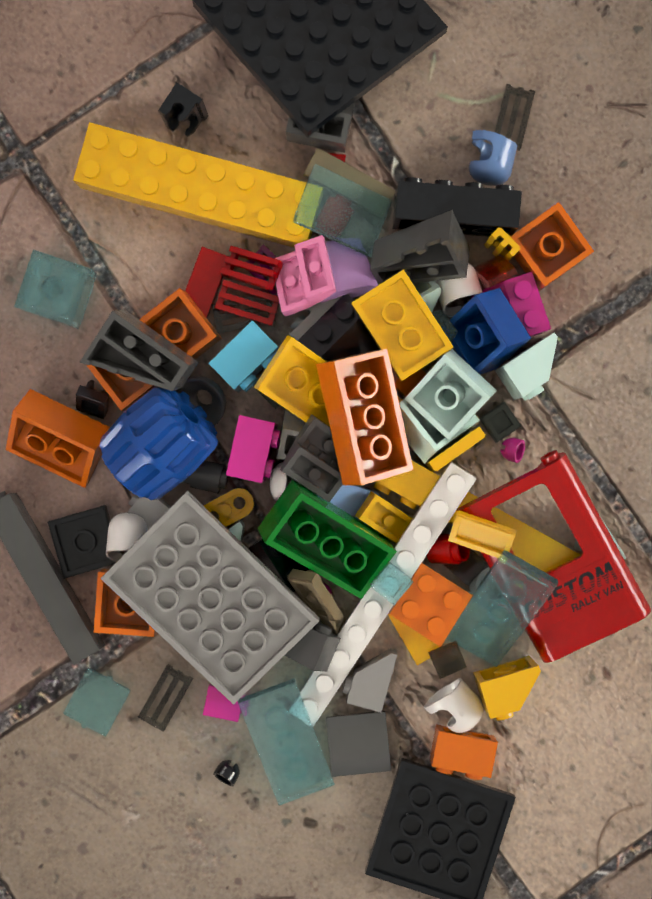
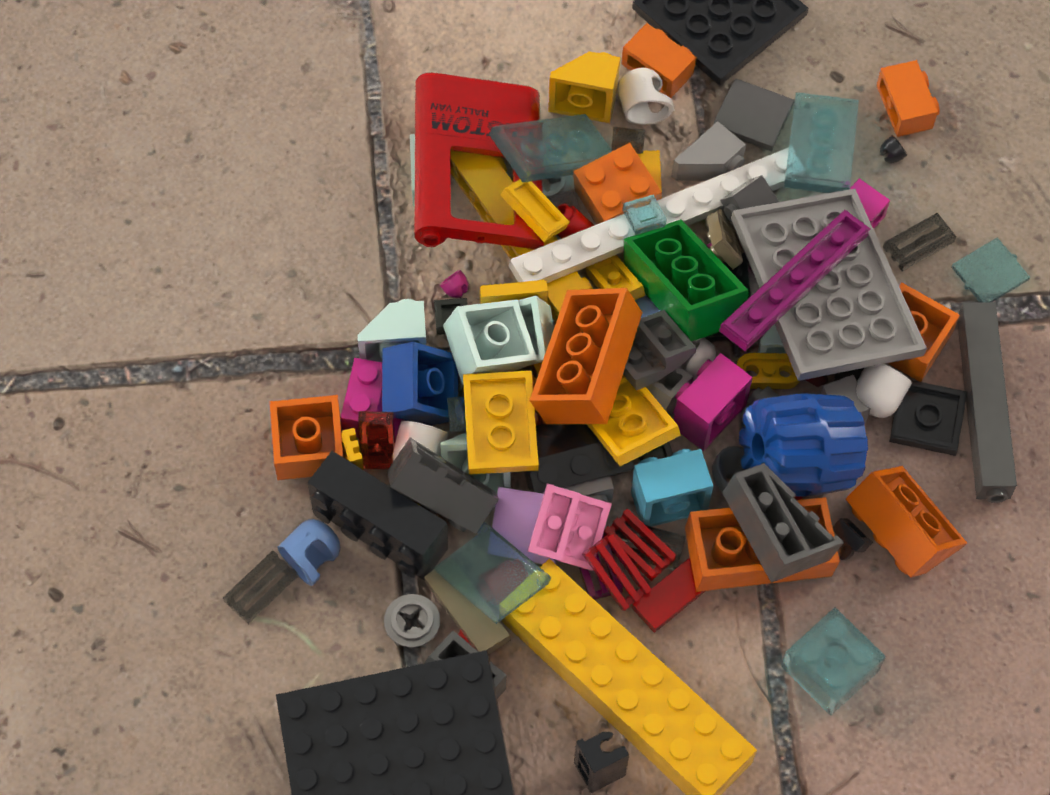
camera: 150 degrees left, 25 degrees down
(233, 579) = (794, 280): none -> magenta tile
(238, 829) = (907, 98): none -> orange brick
(396, 144) = (408, 606): none -> light grey gear

